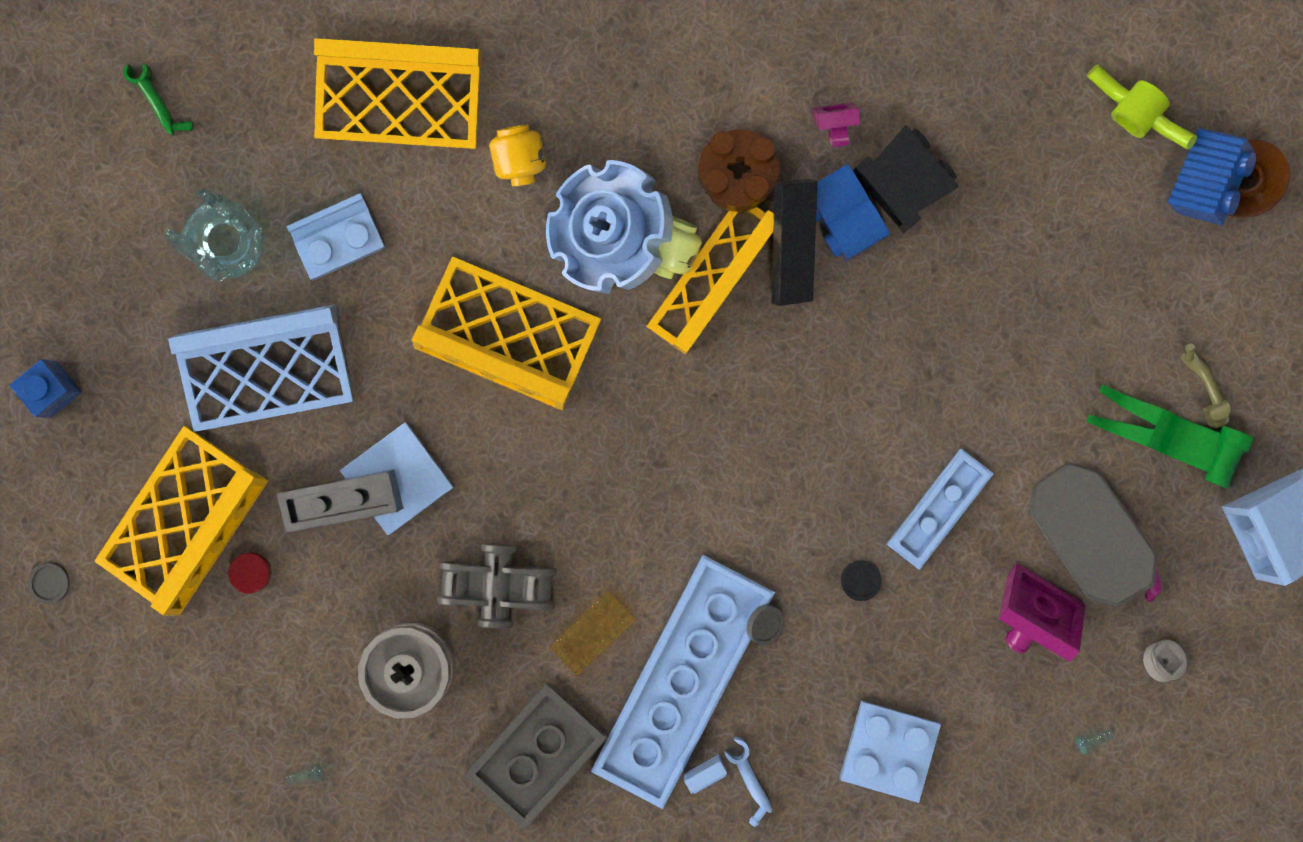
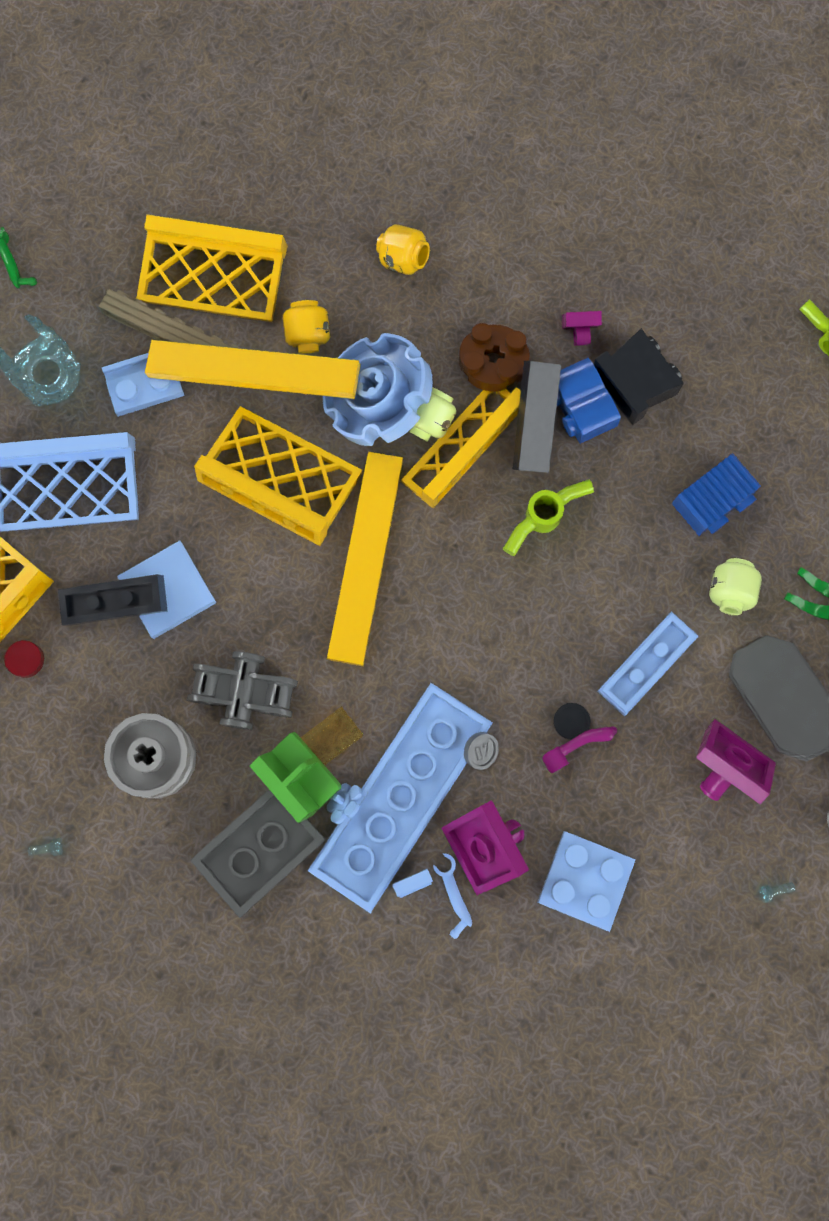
camera: 10 degrees right, 10 degrees down
(362, 174) = (154, 322): none -> dark tan piece
(463, 218) = (253, 369): none -> yellow tile
(567, 676) = (296, 777): none -> bright green panel
(615, 420) = (365, 559): none -> yellow tile
(620, 47) = (403, 249): none -> yellow head
(621, 696) = (344, 803): none -> light blue plant
(781, 731) = (486, 847): none -> magenta tile
(826, 336) = (551, 499): none -> lime piece
(847, 625) = (556, 759): none -> magenta piece
(1004, 312) = (716, 495): none -> blue brick
(1031, 415) = (735, 586): none -> yellowish green head

